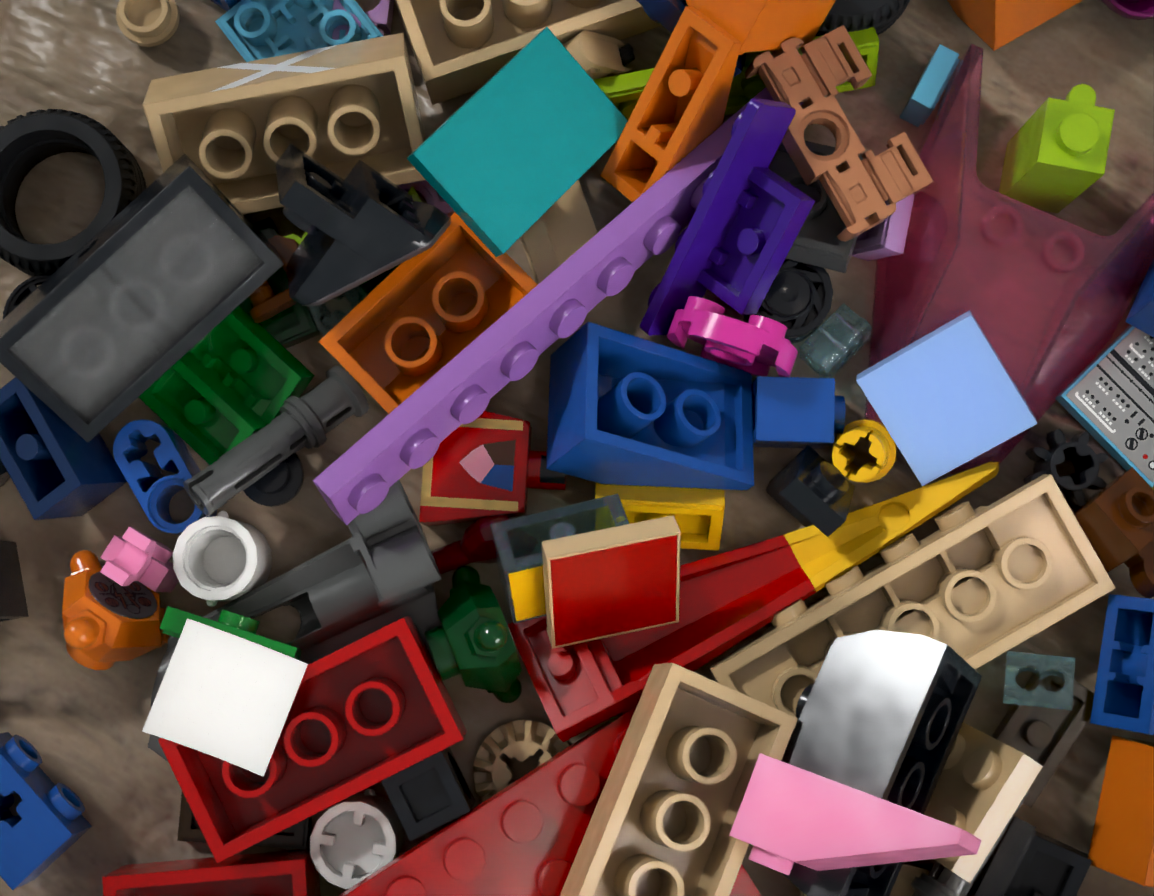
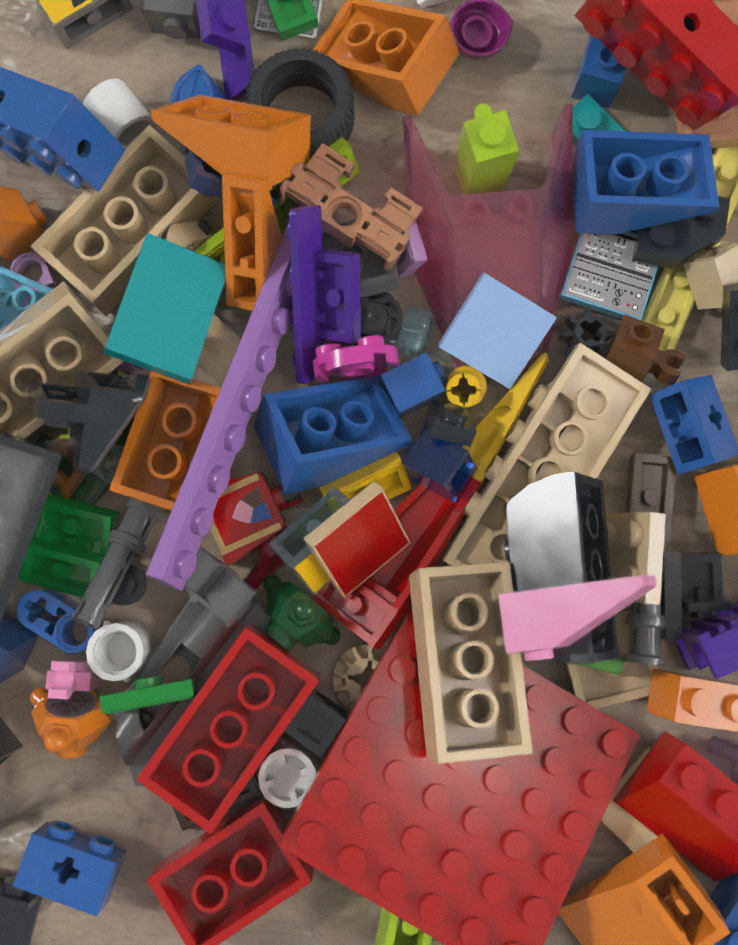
camera: 30 degrees left, 0 degrees up
(225, 696) = (162, 732): white sticker -> none
(772, 539) = (439, 465): none -> clear blue brick
(930, 86) = (392, 155): medium azure tile -> none
(1043, 667) = (634, 456): clear light blue piece -> none

